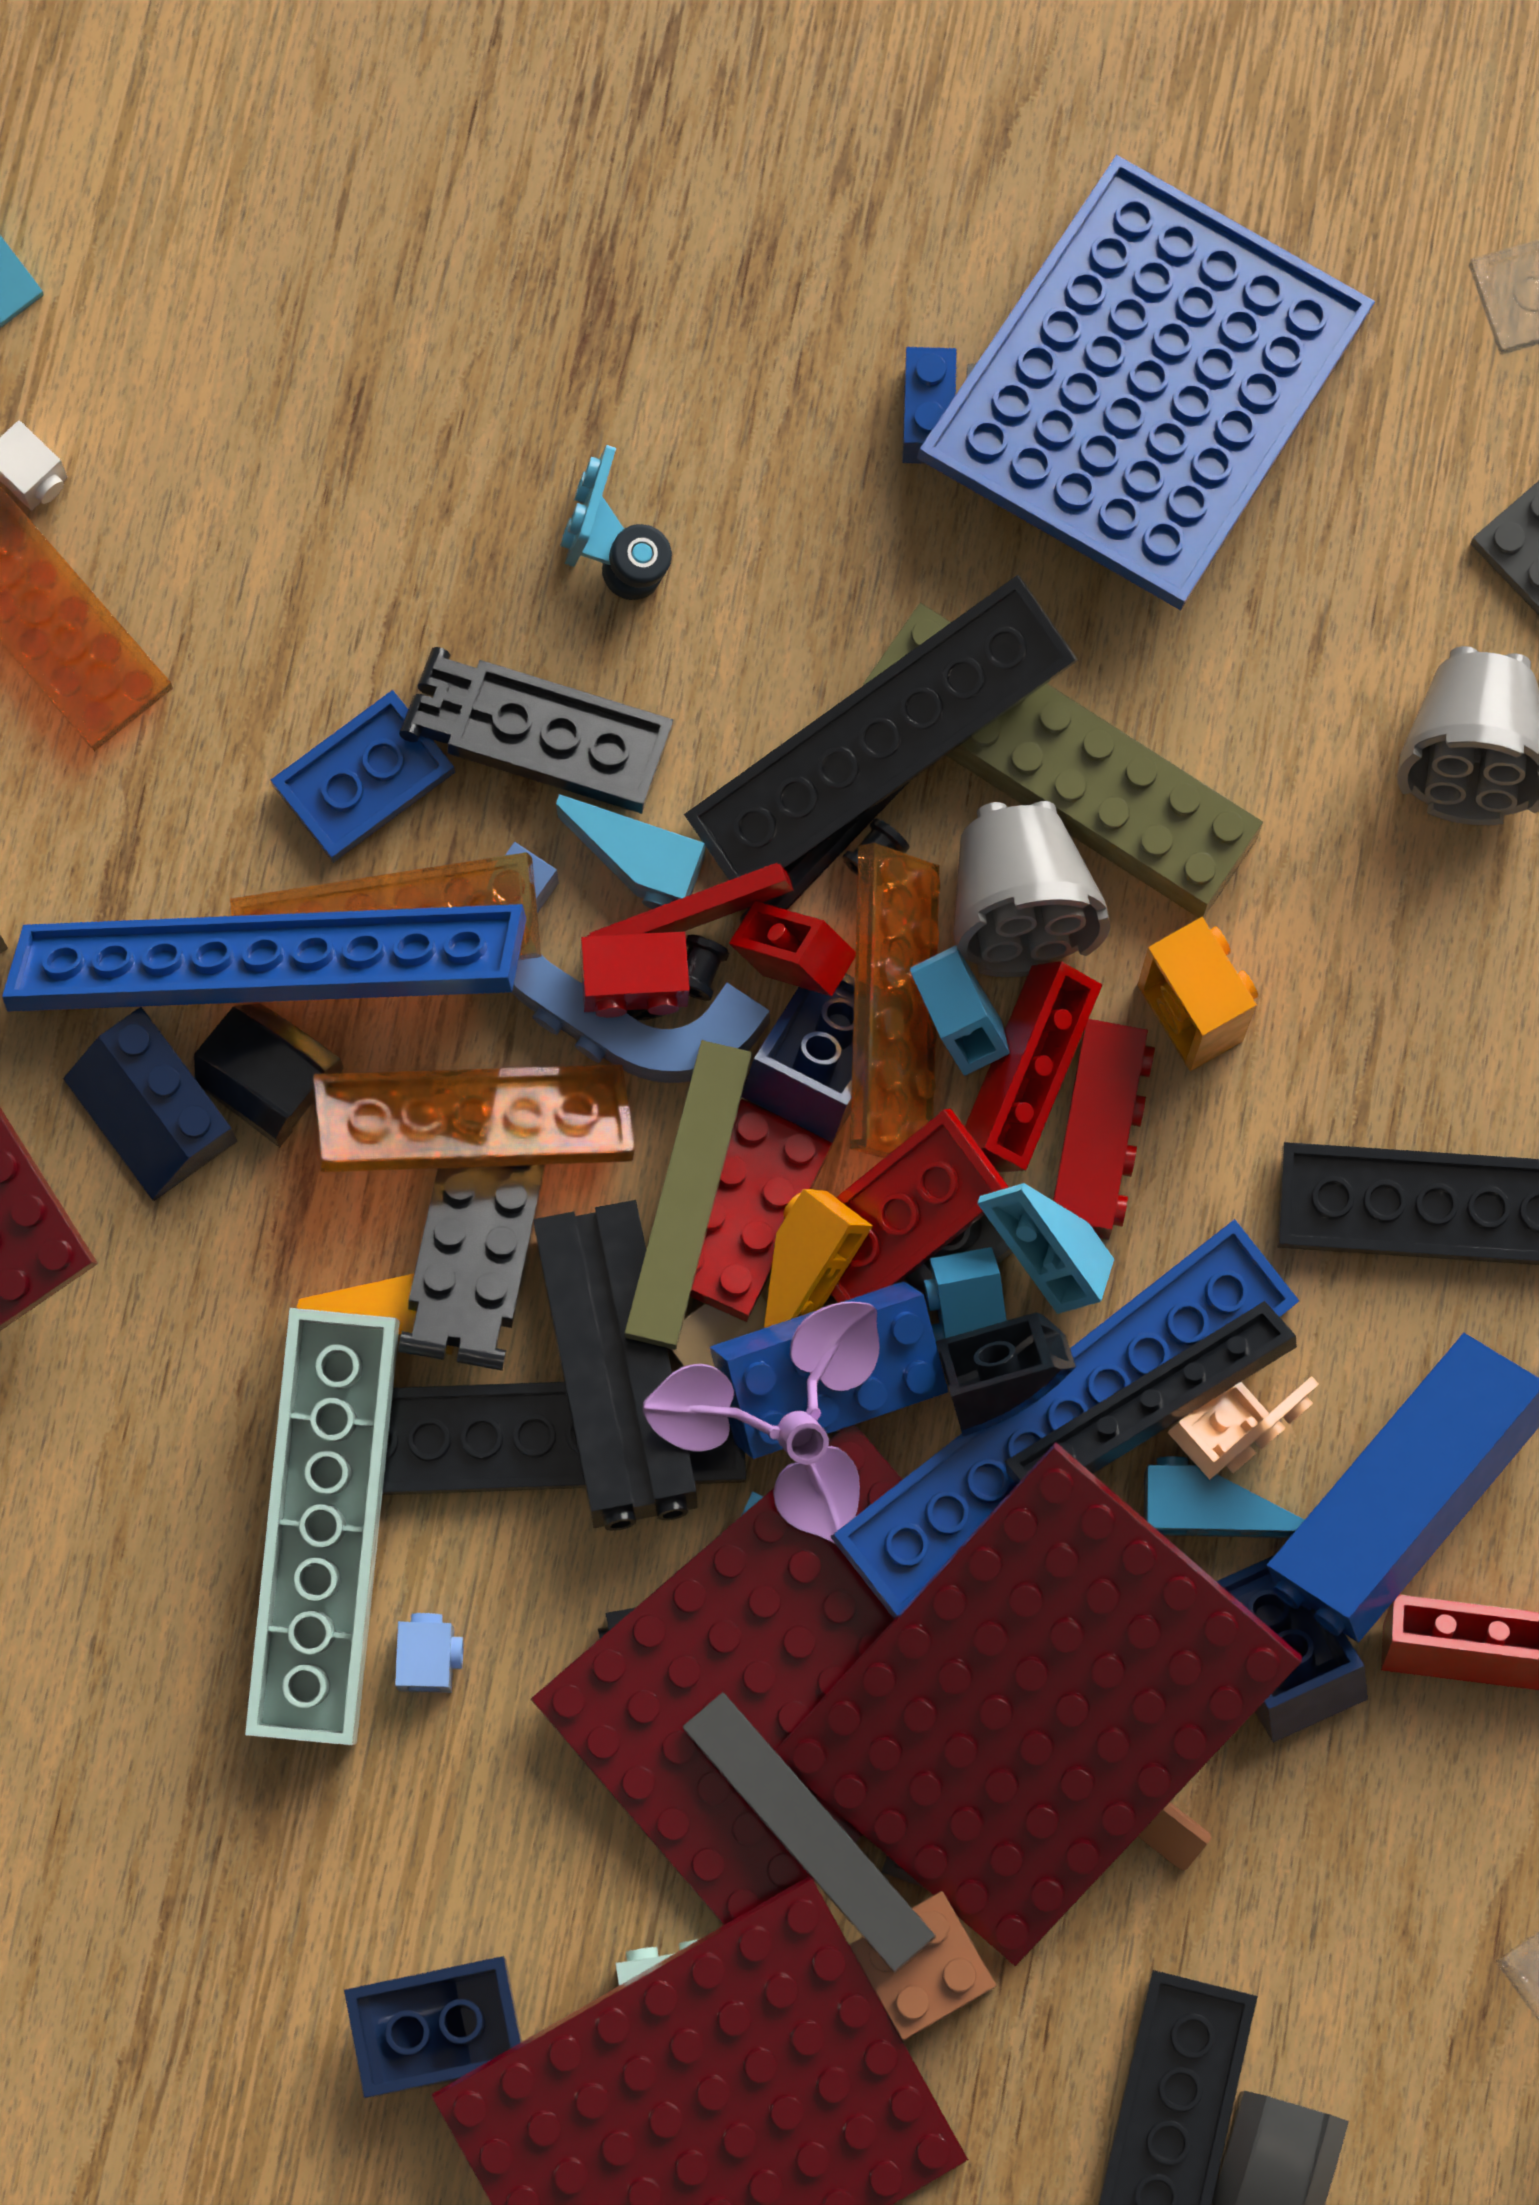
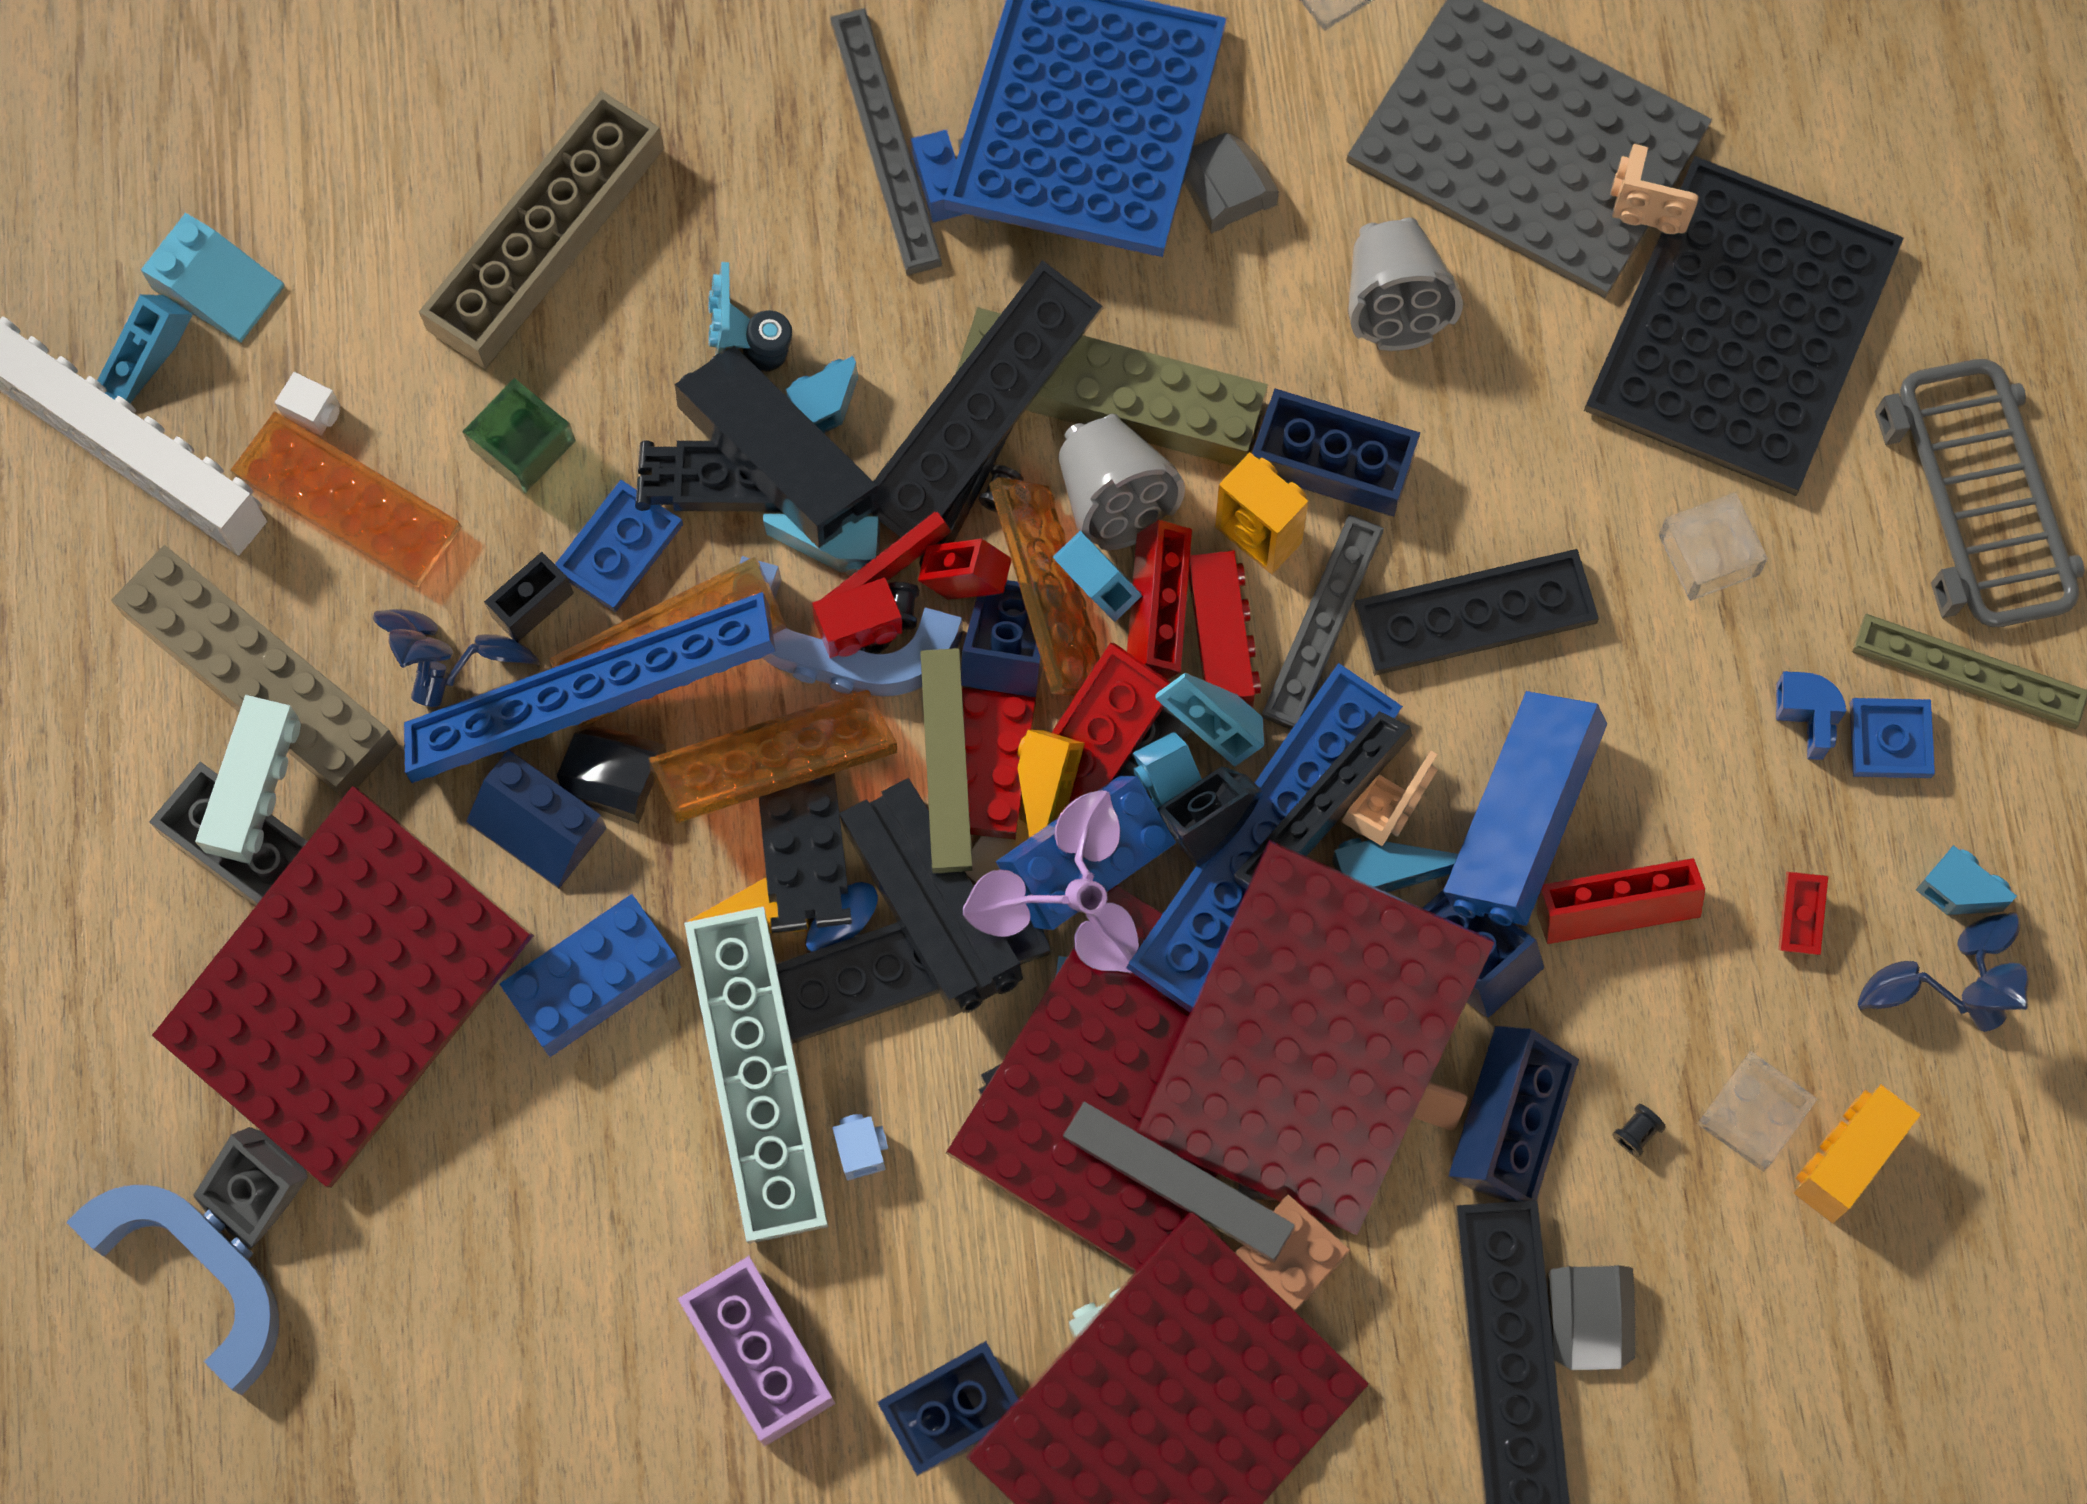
camera: 15 degrees left, 5 degrees down
(76, 859) = (412, 646): none -> dark blue plant
(156, 1329) = (590, 975): none -> blue brick
(216, 1875) = (756, 1351): none -> lavender brick
(228, 811) = (529, 597): none -> black brick
(280, 592) = (519, 435): none -> clear green piece
(394, 323) = (542, 229): none -> dark tan brick
(523, 1347) = (862, 901): none -> blue arm
(603, 709) = (776, 446): none -> black brick
(687, 660) = (826, 394): none -> dark azure slope
(876, 334) = (886, 142): none -> dark grey tile
(1235, 1155) = (1322, 622): none -> dark grey tile
(1265, 1878) = (1514, 1115): none -> dark blue slope
(1304, 524) = (1228, 181): none -> dark grey slope
(1321, 937) = (1337, 451): none -> dark blue brick
(1417, 1947) = (1639, 1130): none -> black bush

